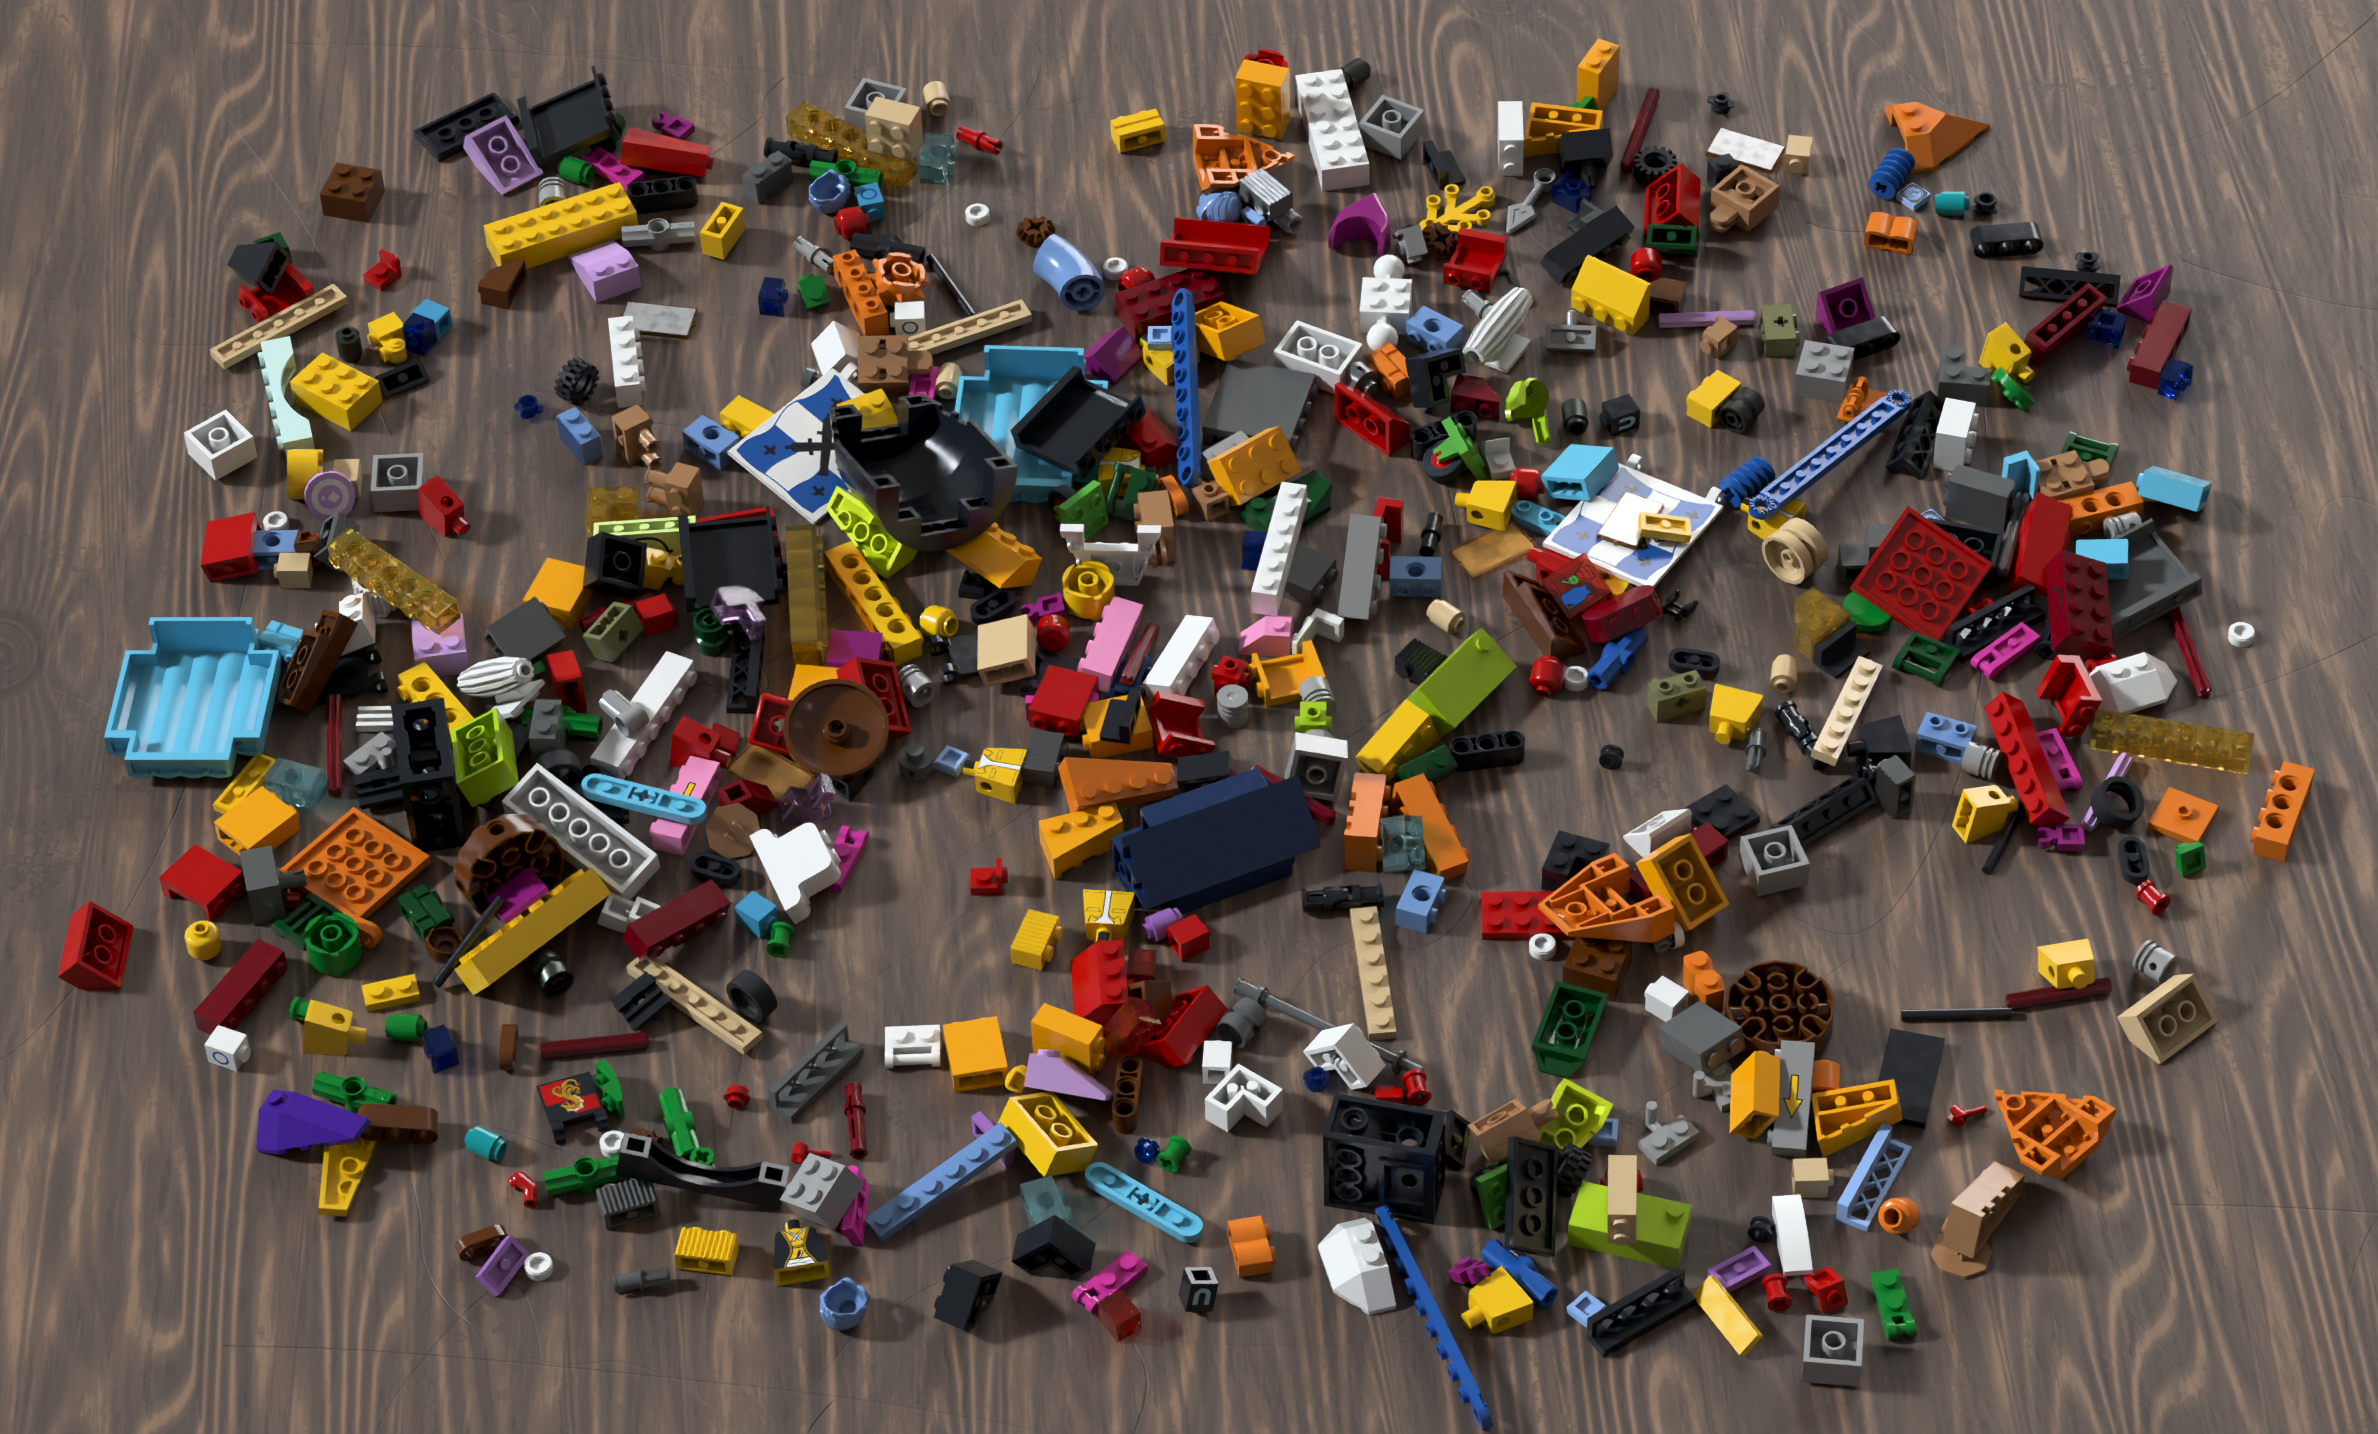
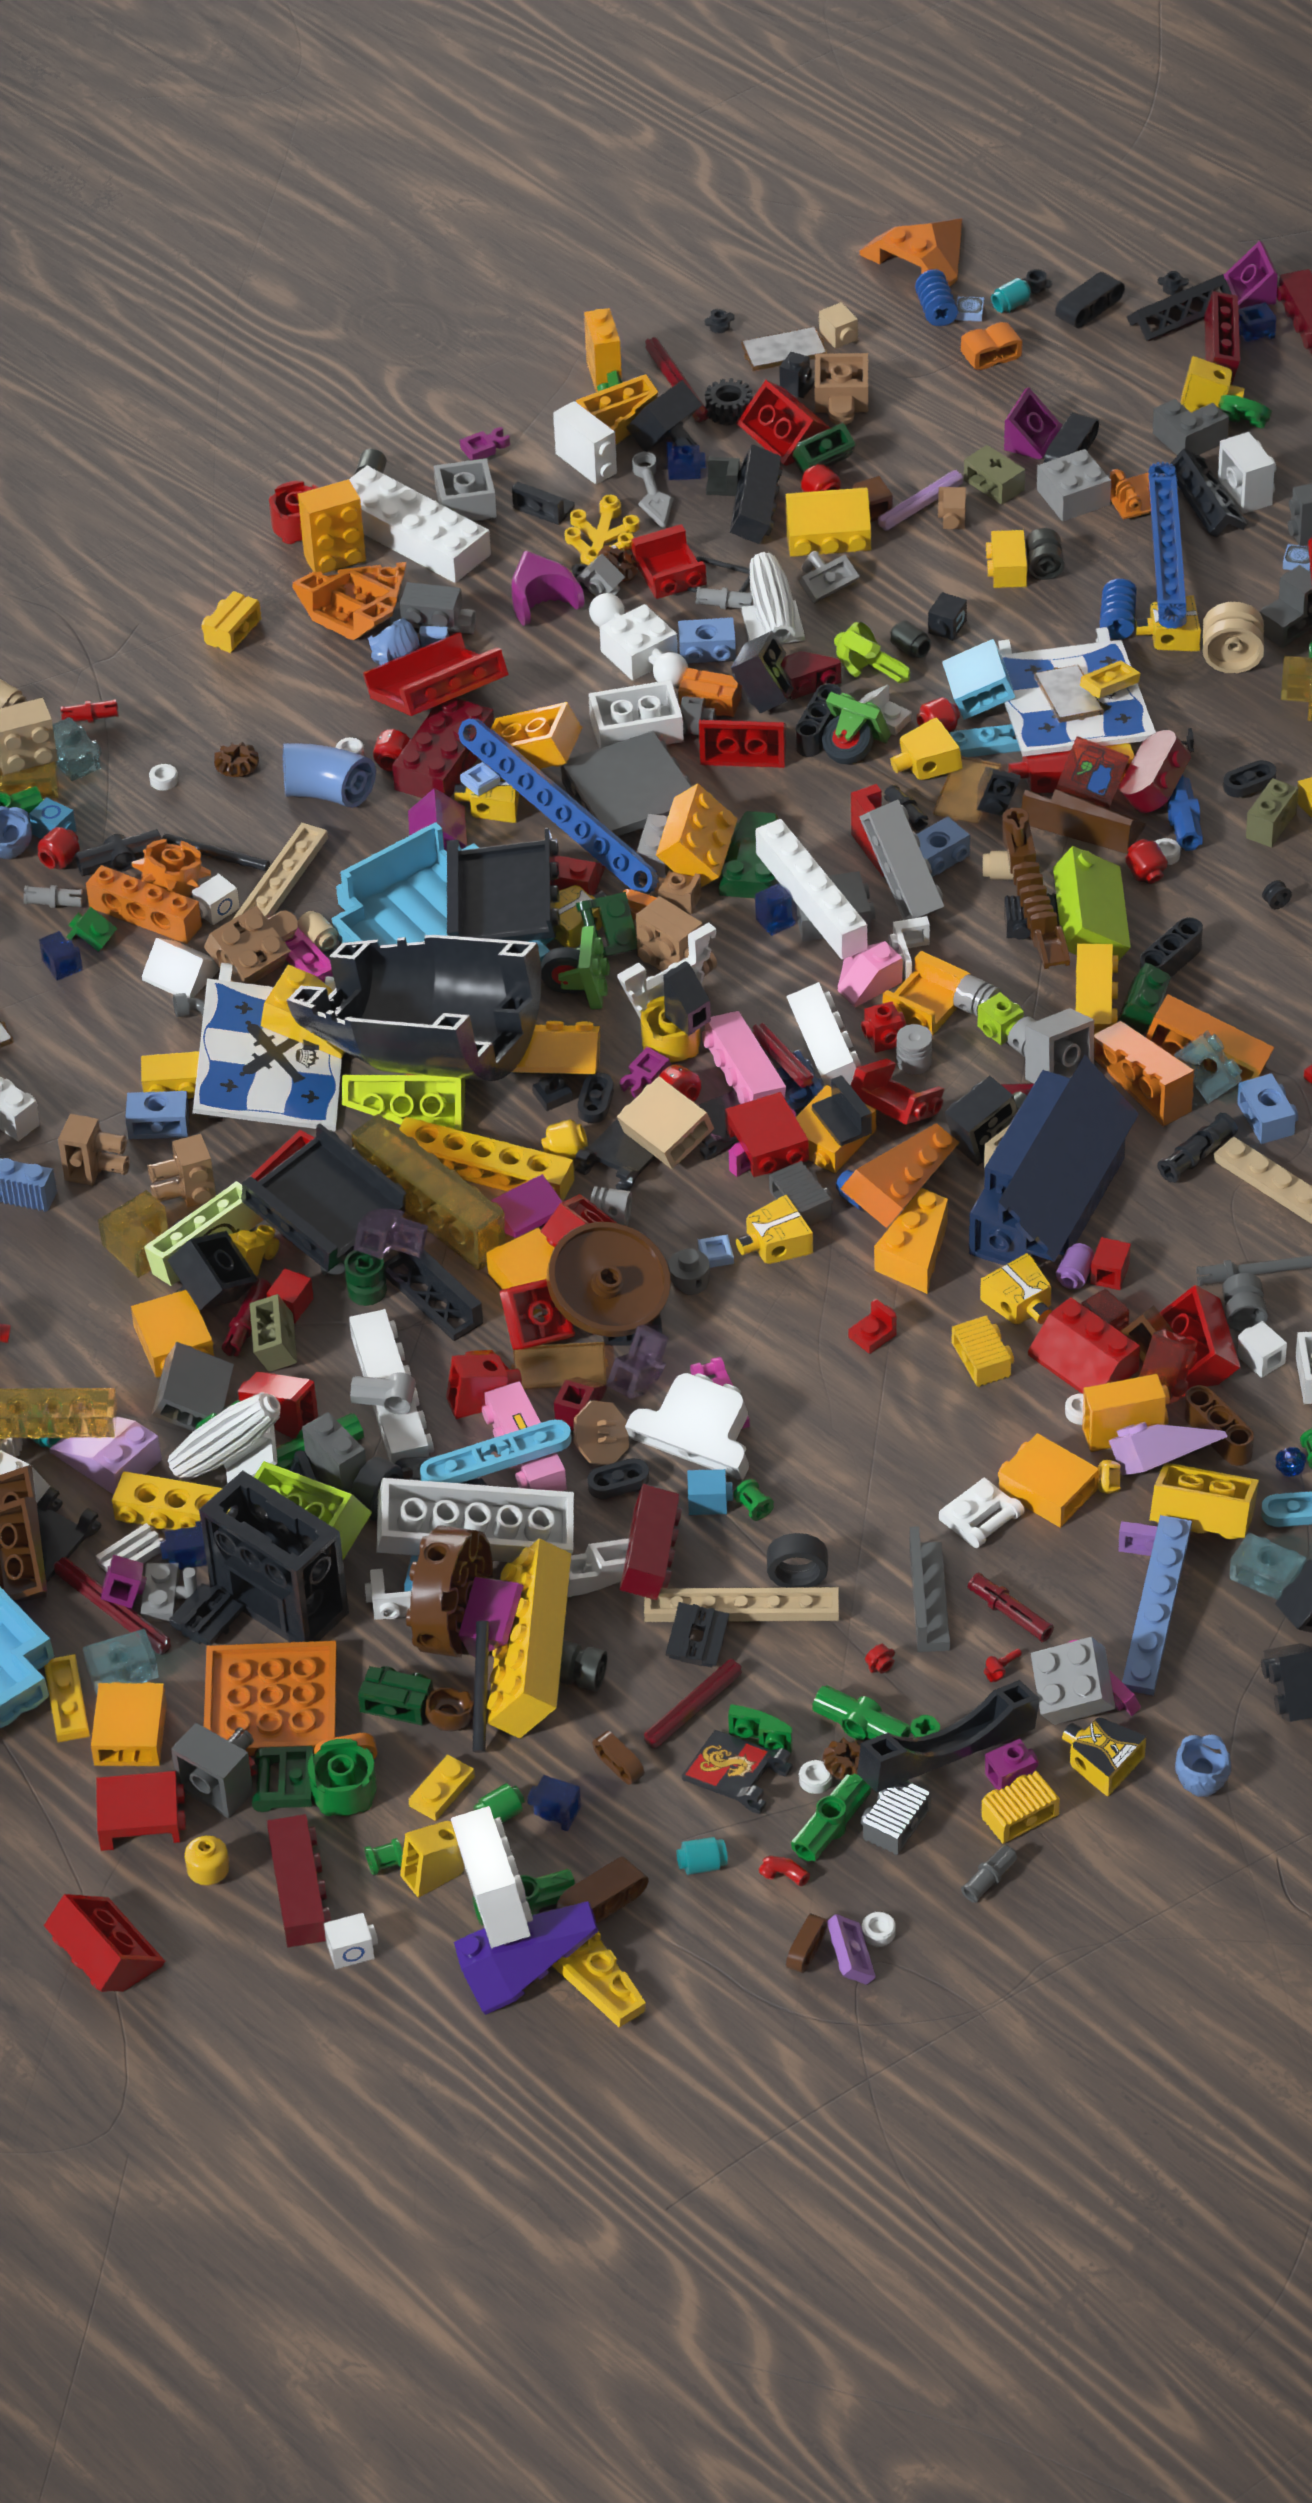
camera: 40 degrees left, 0 degrees up
(321, 1060) = (493, 1876): none -> white brick
(348, 732) = (123, 1581): none -> magenta brick
(732, 1218) = (1009, 1763): none -> magenta brick
(1096, 570) = (685, 999): none -> black slope
(1413, 665) = (1033, 894): none -> reddish brown piece
(1448, 100) = (482, 445): none -> magenta plate
(1499, 557) = (996, 790): none -> black slope

